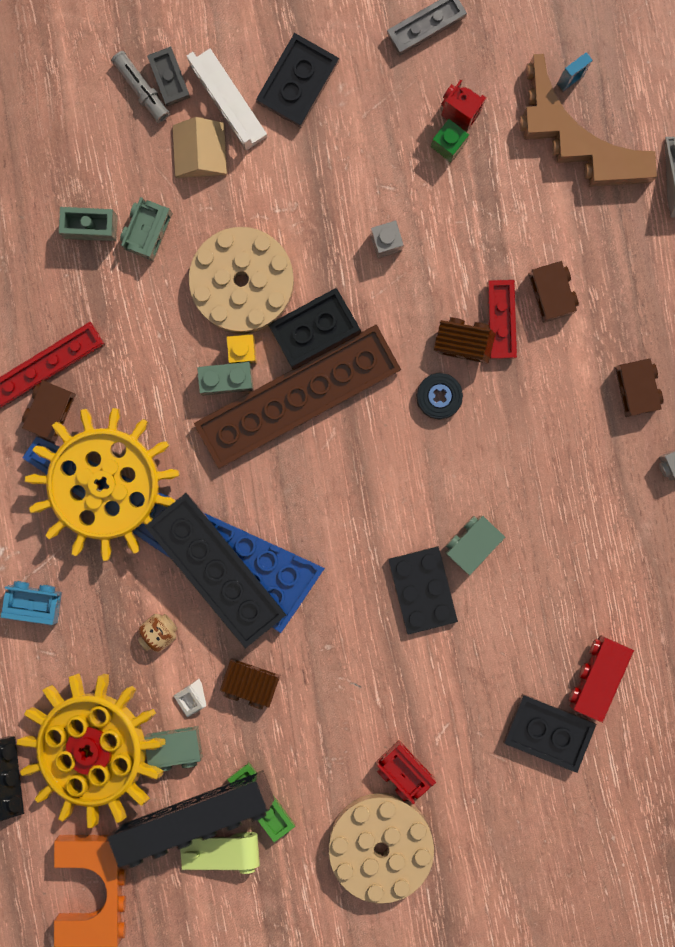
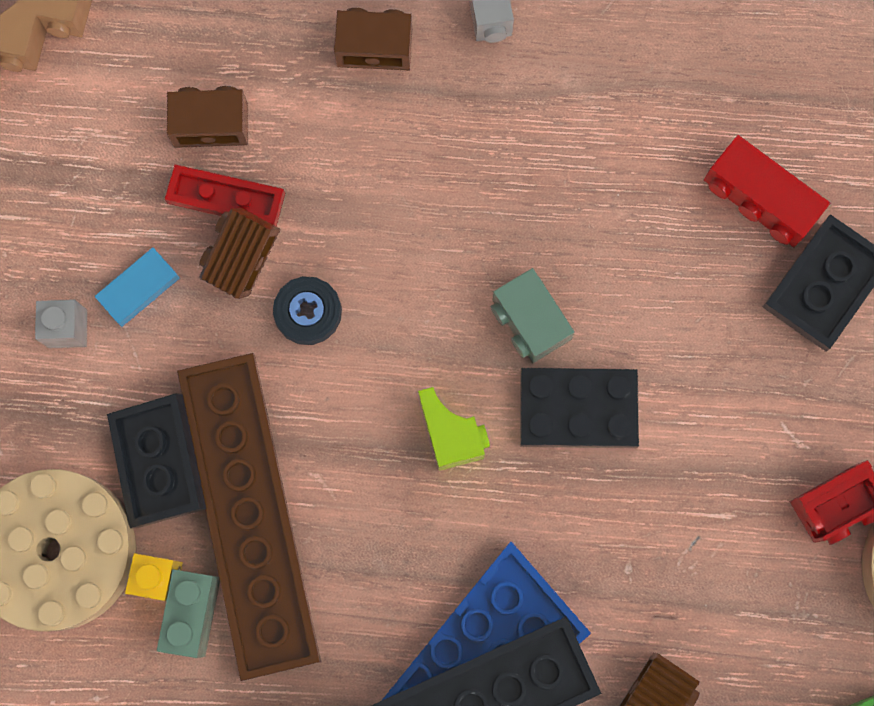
camera: 70 degrees left, 10 degrees down
(381, 513) = (453, 437): none -> lime arch
(425, 279) = (137, 287): none -> dark azure tile

